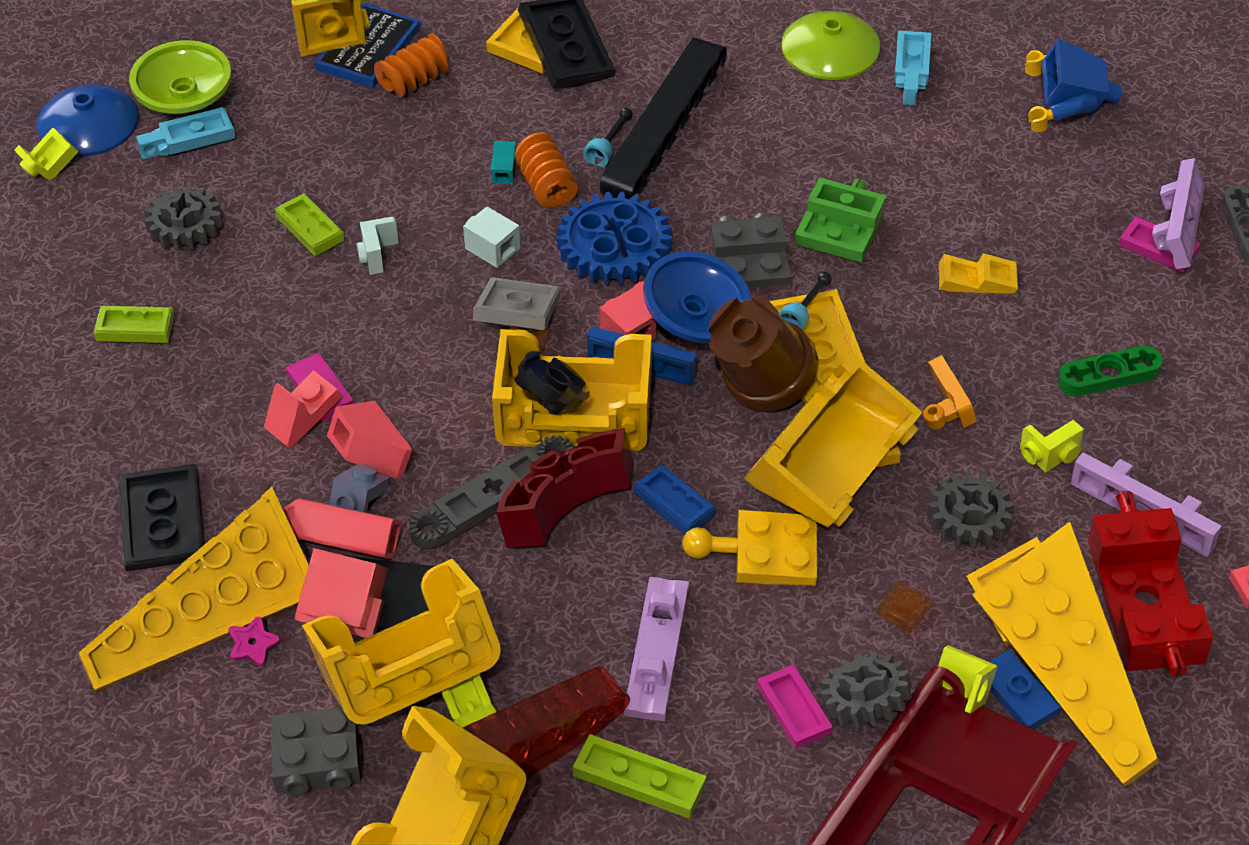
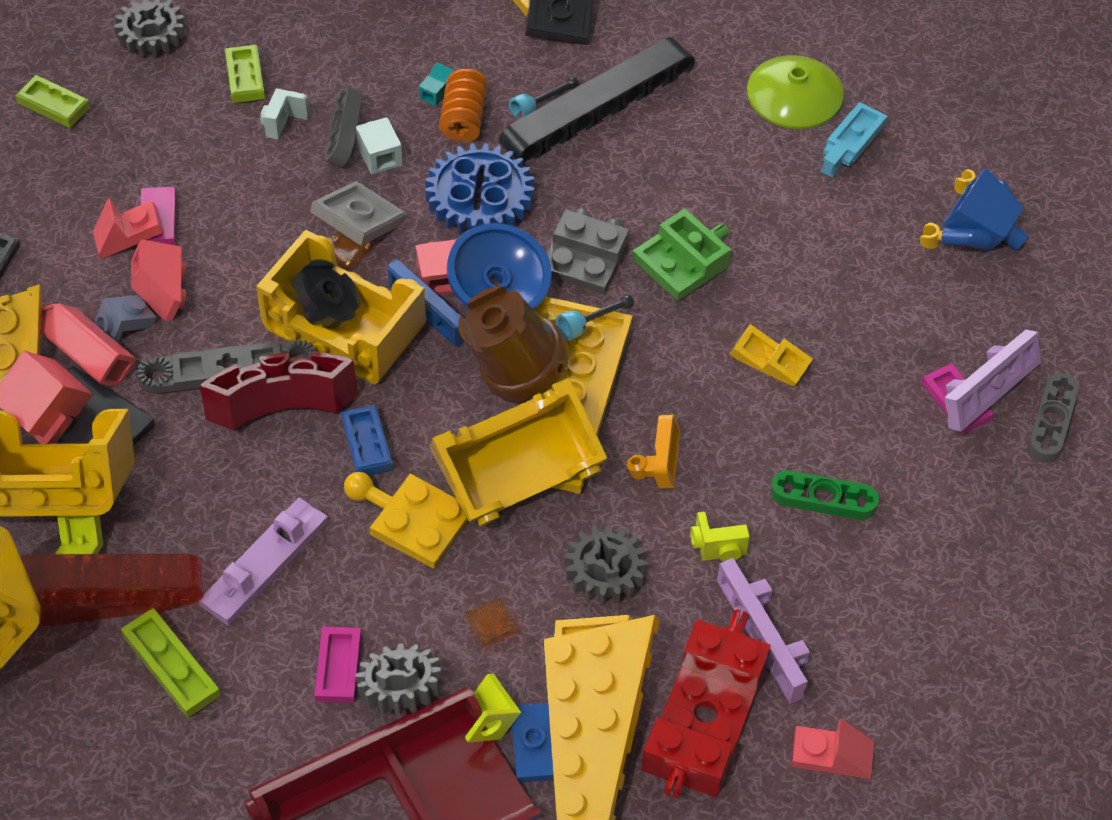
camera: 25 degrees right, 5 degrees up
(444, 233) = (343, 126): none -> dark grey beam

